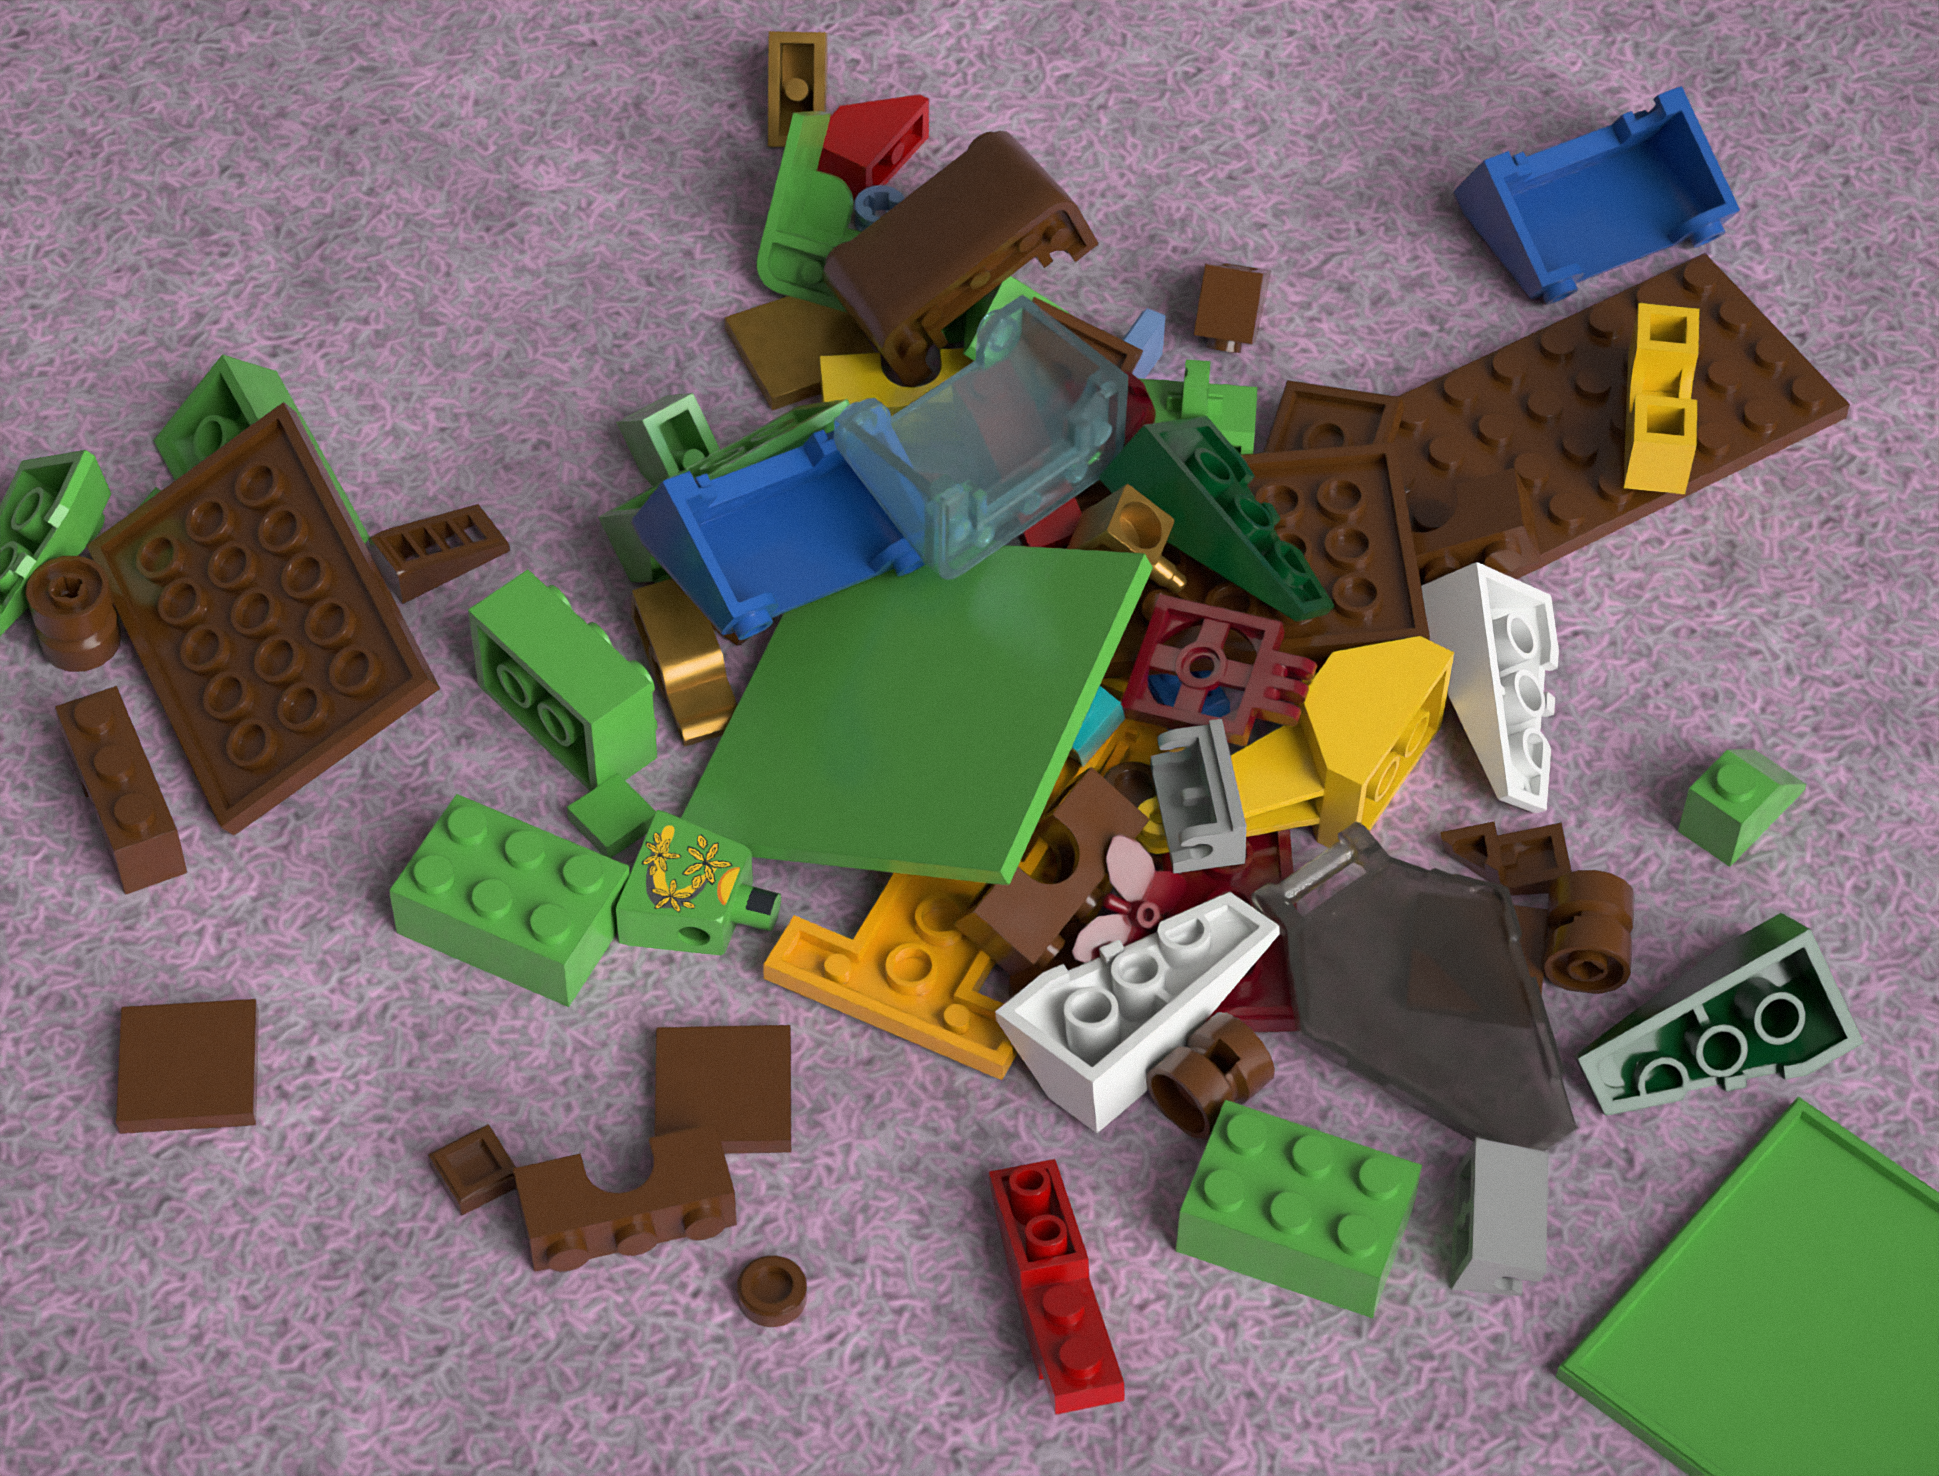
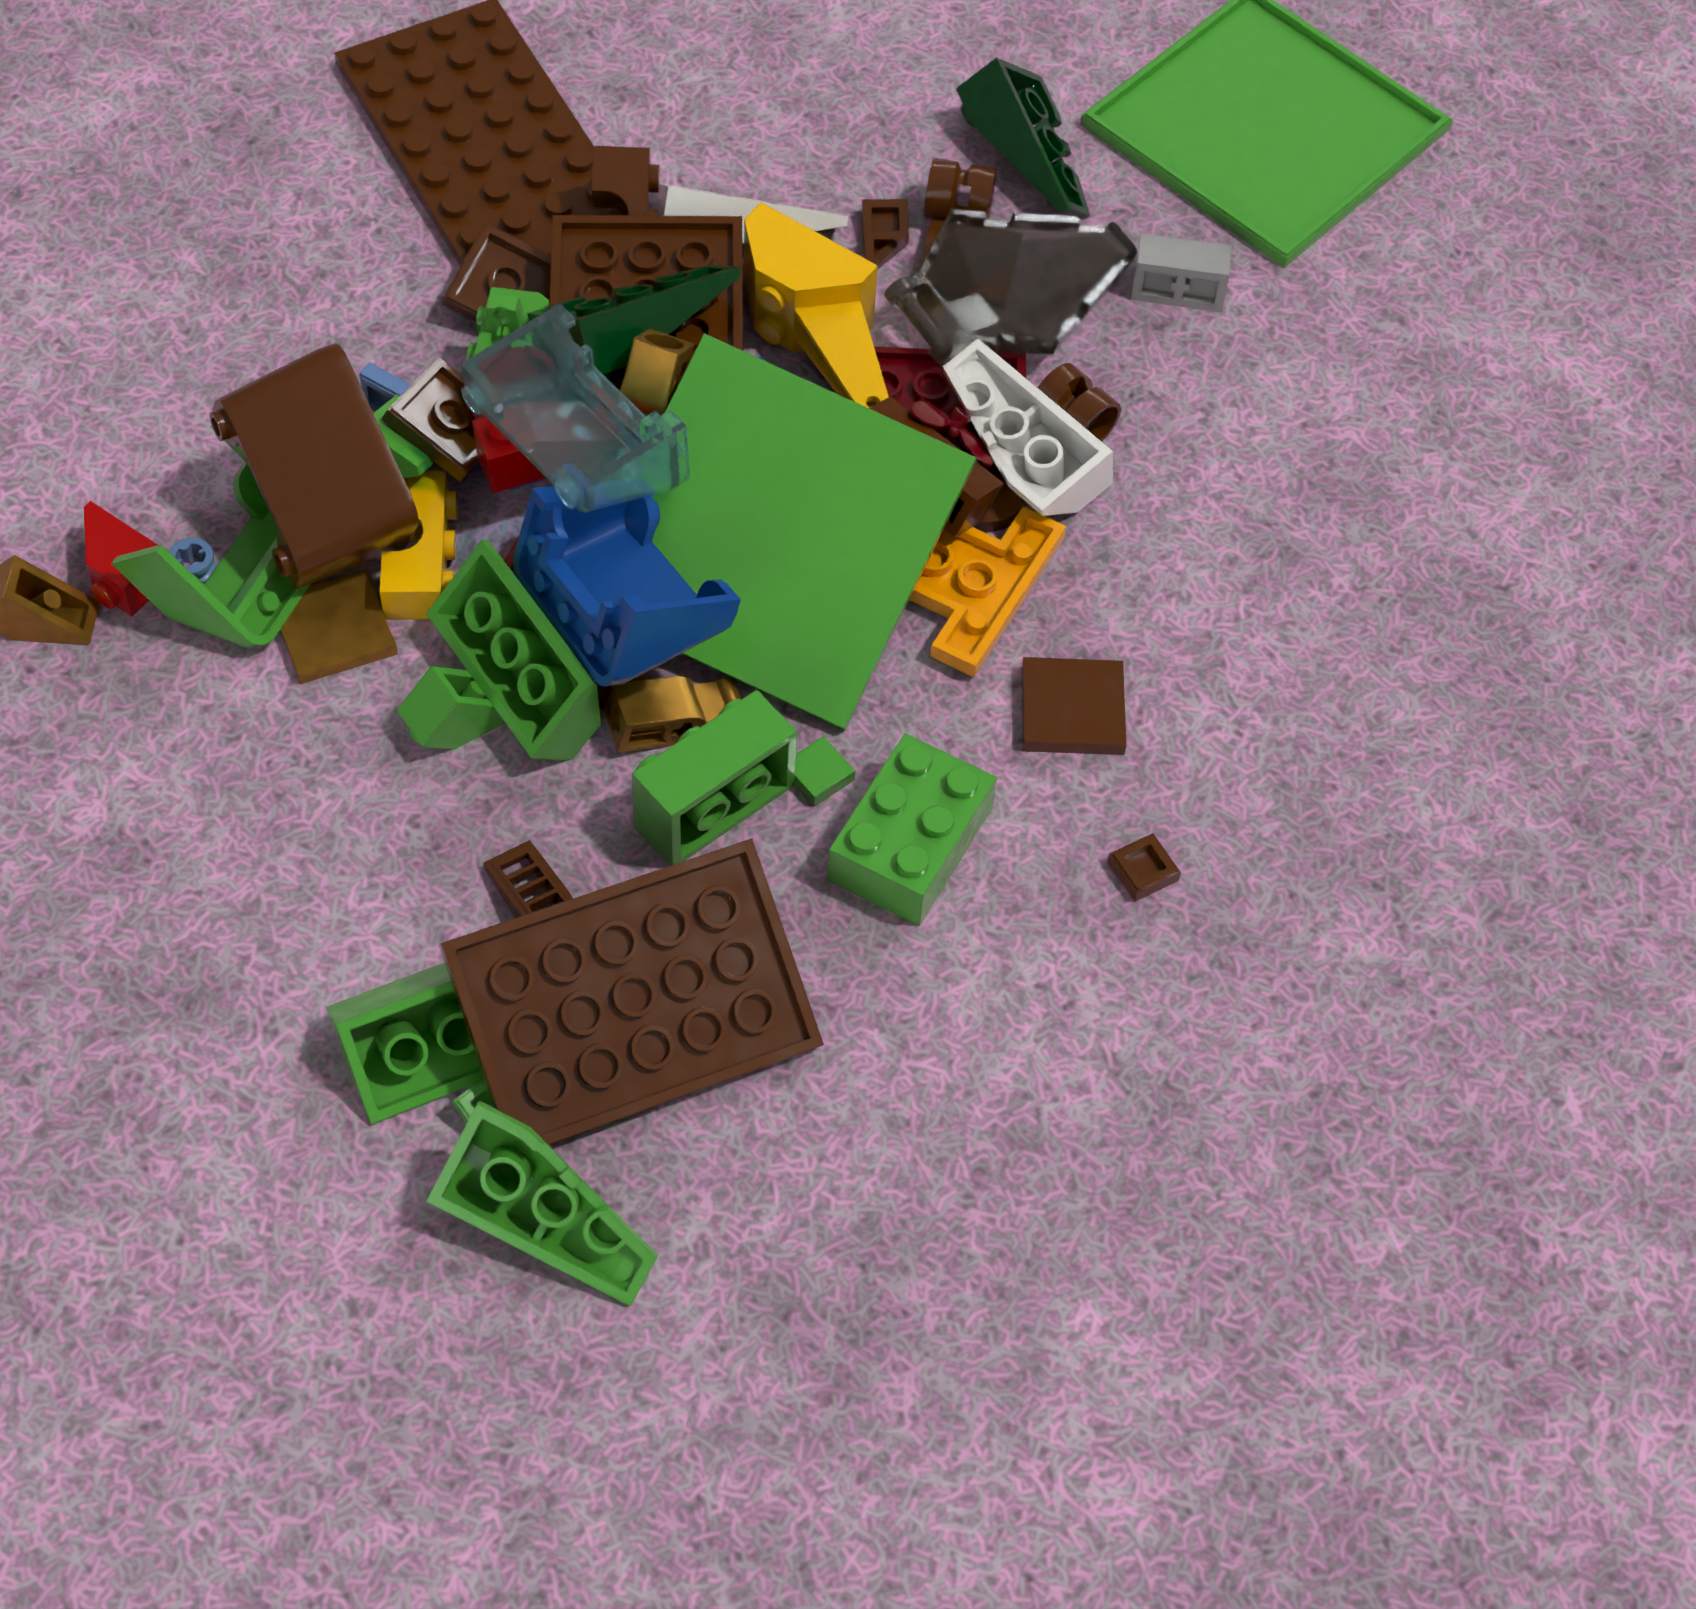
camera: 90 degrees left, 5 degrees up
(73, 613) = (599, 1152): reddish brown wheel -> none
(121, 789) = (752, 1124): reddish brown arch -> none
(188, 1066) = (1051, 1067): reddish brown tile -> none
(576, 1221) = (1174, 724): reddish brown arch -> none
(691, 890) = (898, 702): bright green torso -> none
(772, 1291) = (1241, 682): reddish brown tile -> none
(1055, 1288) = (1238, 515): red slope -> none
(1199, 799) = (876, 362): light grey hinge -> none
(1231, 305) = (346, 319): reddish brown slope -> none
(1261, 683) = (785, 310): dark red piece -> none
(1298, 1208) = (1181, 370): bright green brick -> none
(1600, 198) = (265, 100): blue windscreen -> none
(1659, 401) = (477, 75): yellow arch -> none
(1736, 802) = (849, 105): bright green slope -> none

